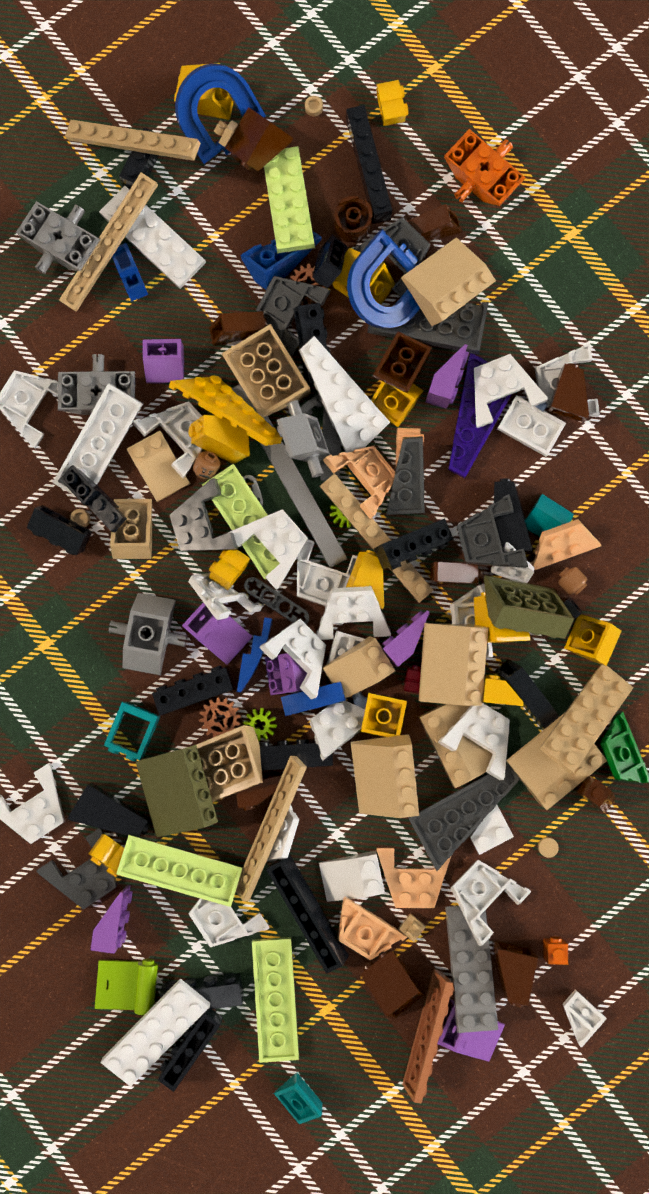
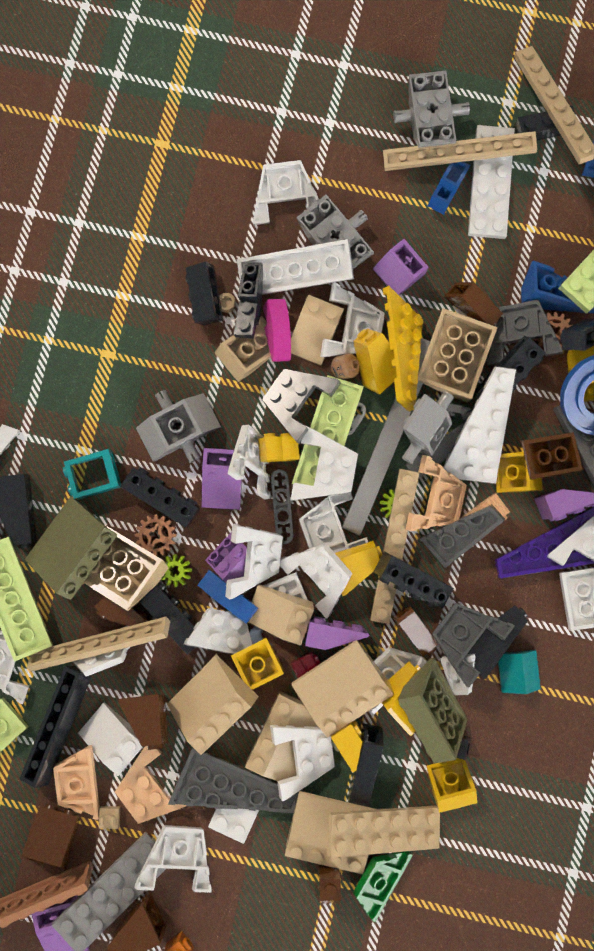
camera: 50 degrees right, 0 degrees up
(135, 494) = (278, 329): none -> dark pink slope
(251, 661) = (219, 523): blue slope -> none
(358, 835) = (147, 719): none -> reddish brown slope
(548, 847) = (257, 878): tan tile -> none
(563, 543) = (510, 700): light nougat wing -> none
(572, 580) = (486, 731): medium nougat head -> none

